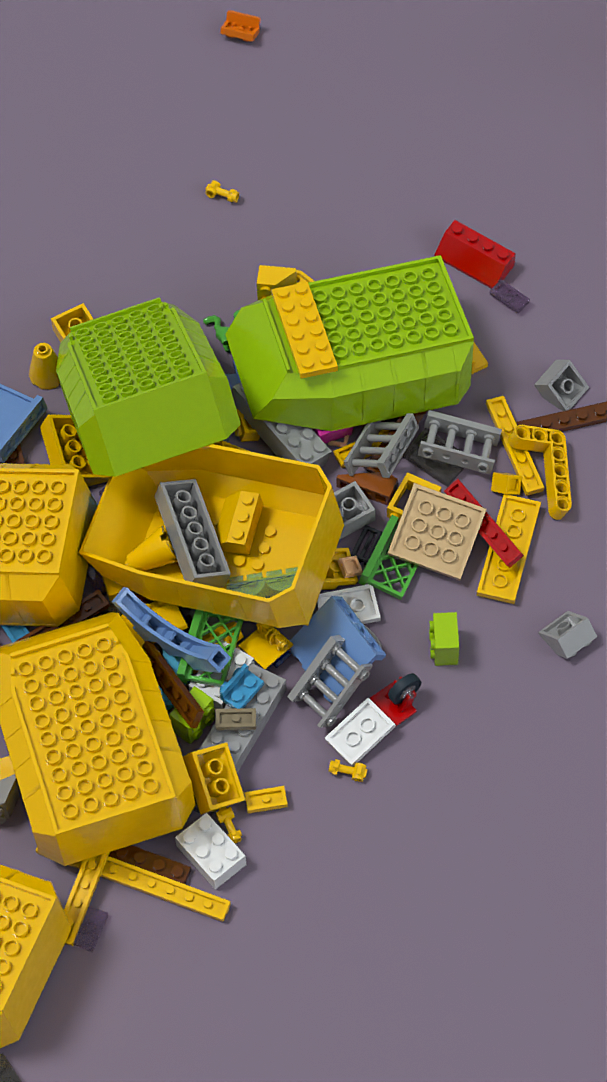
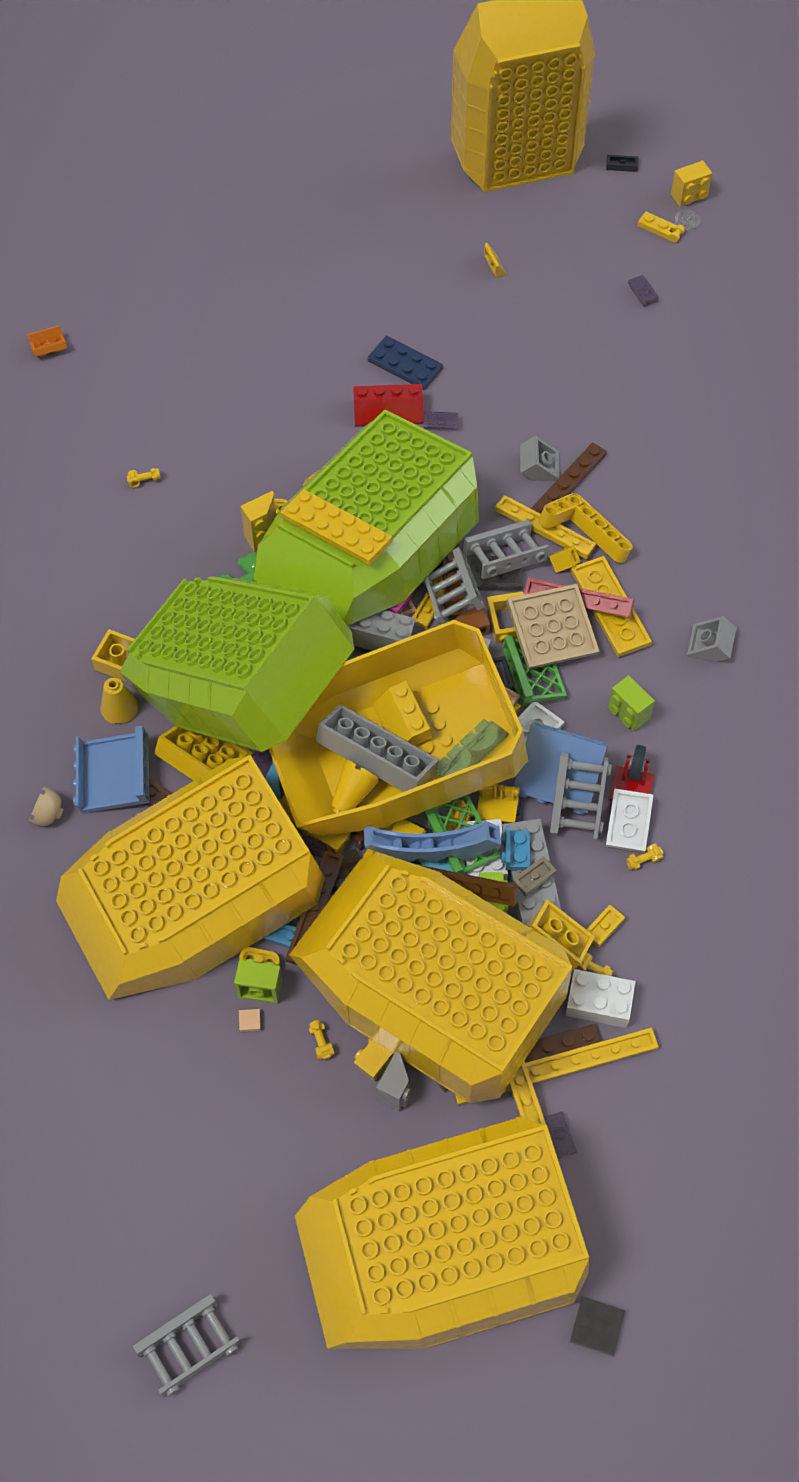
camera: 40 degrees left, 0 degrees up
(525, 226) = (405, 362): none -> dark blue plate

